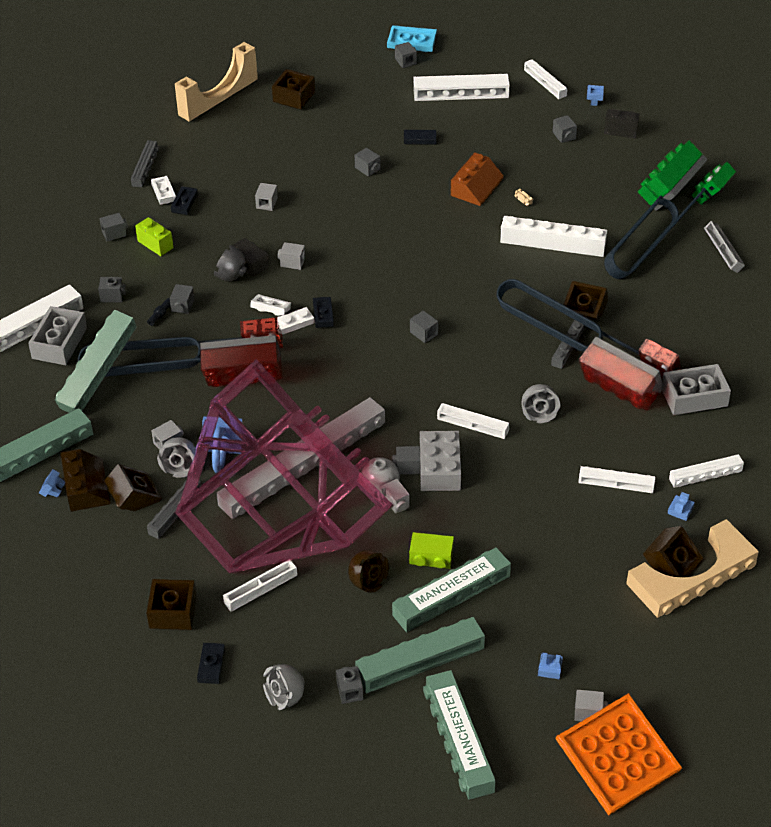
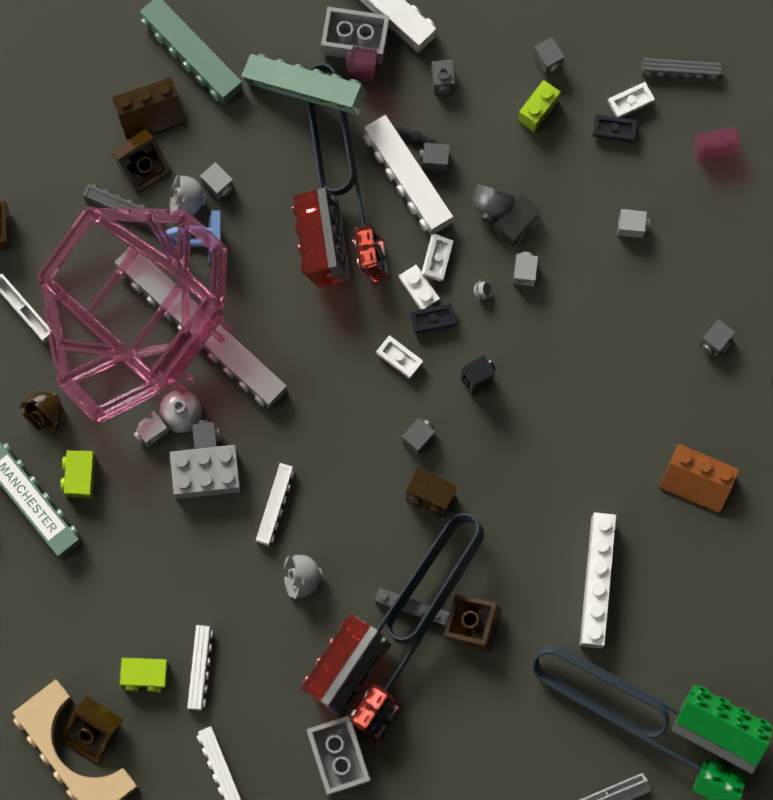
camera: 80 degrees right, 30 degrees up
(50, 484) = (140, 75): medium blue tile -> none
(86, 326) = (362, 64): none -> clear pink brick
(194, 315) = (408, 175): none -> white brick
(211, 148) = (716, 143): none -> clear pink brick
(304, 281) = (483, 290): none -> light grey plate
(353, 334) = (399, 357): none -> white plate
(379, 282) = (478, 374): none -> black brick
(475, 316) = (430, 493): none -> dark brown brick
(523, 197) = (677, 540): tan piece -> none
(622, 515) = (143, 673): none -> lime brick
(681, 506) = (165, 739): medium blue tile -> none

